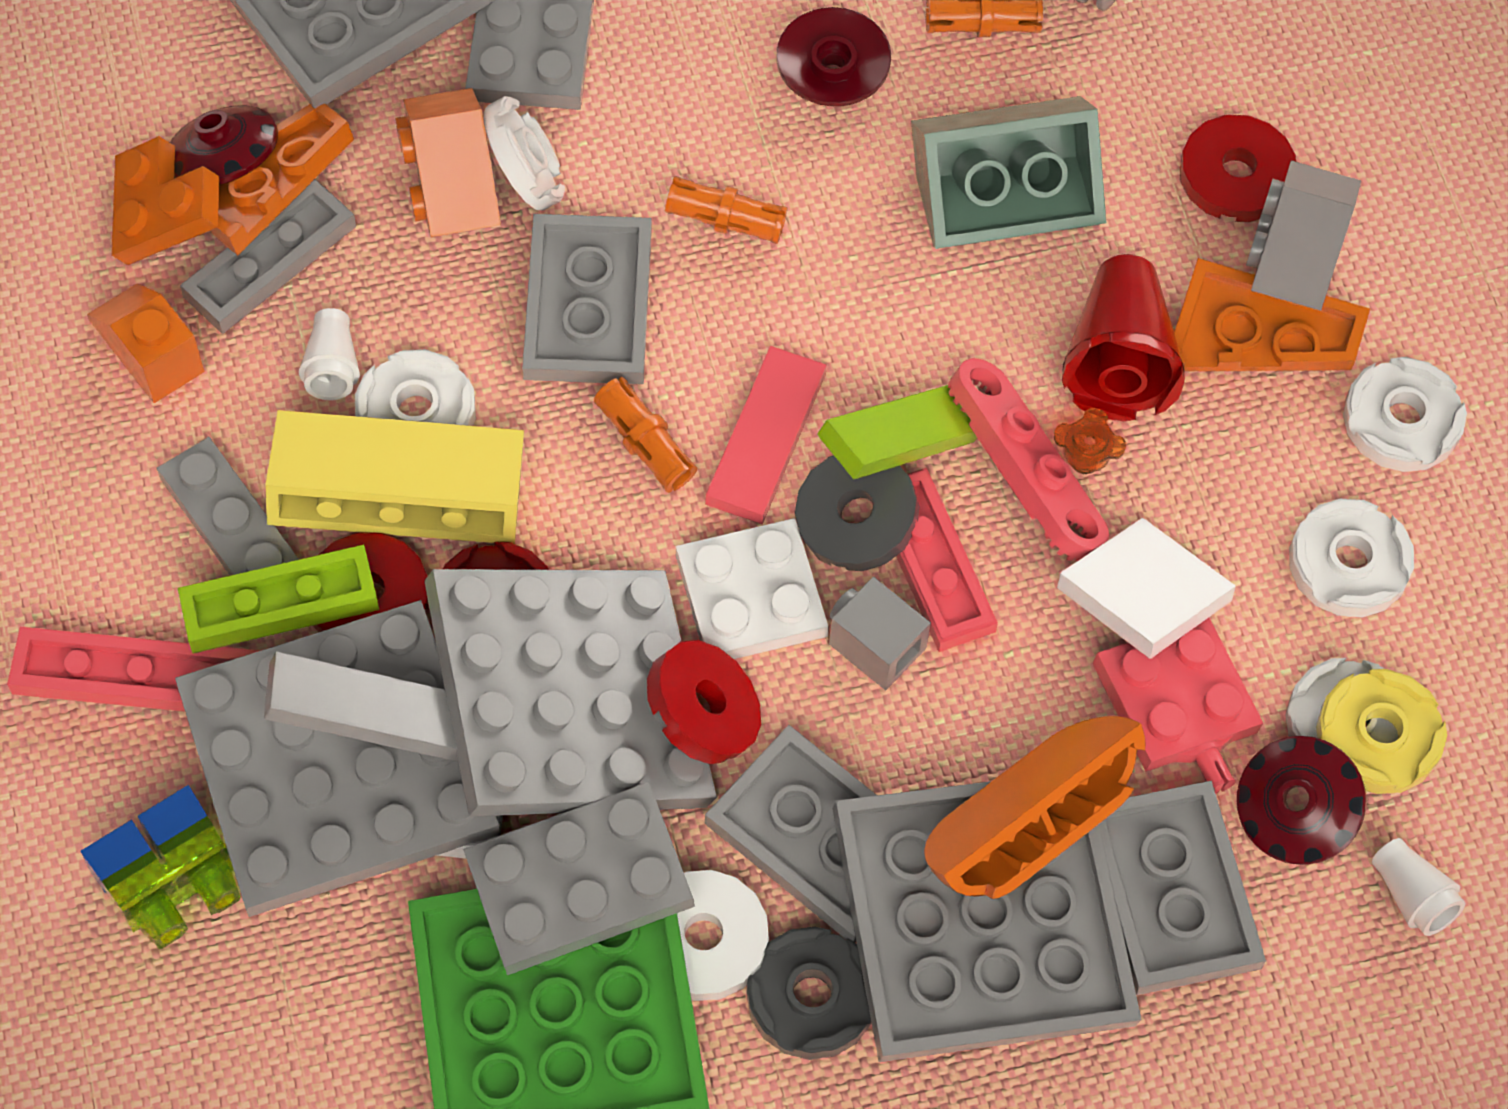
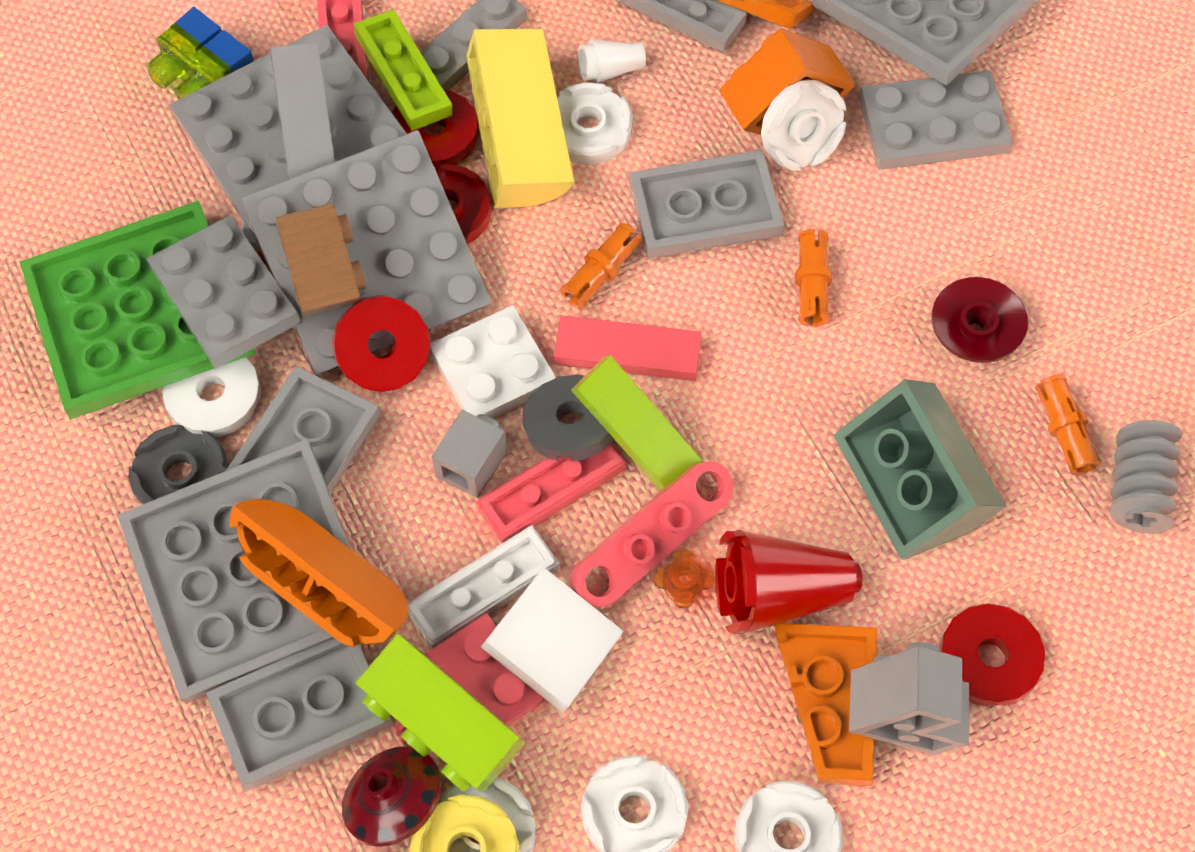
camera: 80 degrees right, 0 degrees up
(599, 725) = (319, 259): none -> medium nougat brick
(1046, 651) = (481, 586): none -> white tile
(1234, 713) = (438, 715): none -> lime brick

